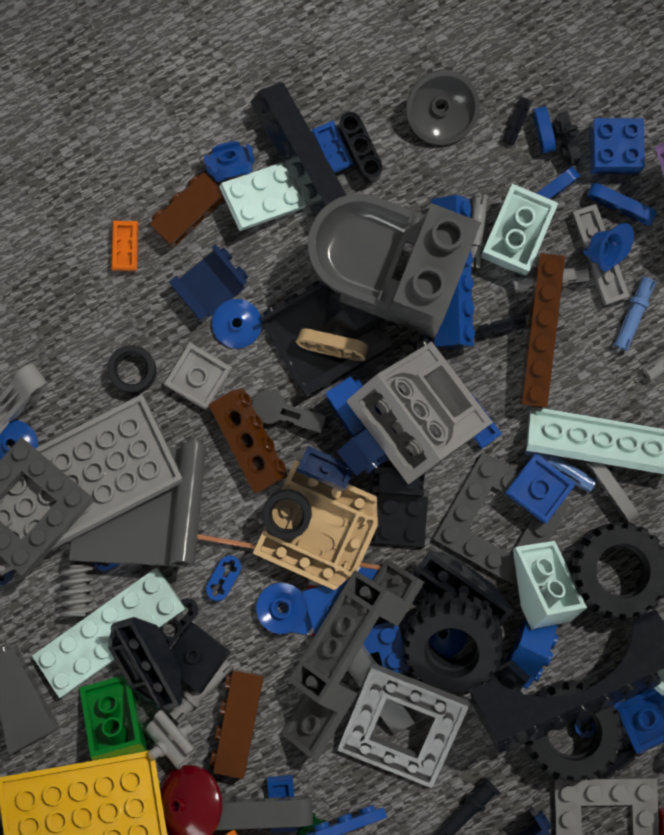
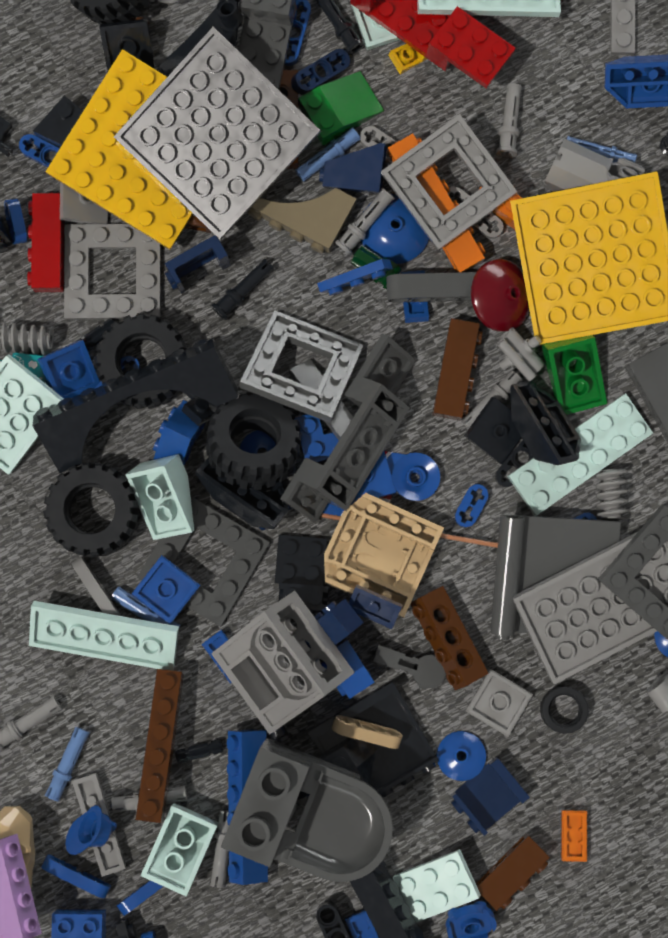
camera: 175 degrees left, 0 degrees up
(268, 519) = (422, 549): black tyre -> none

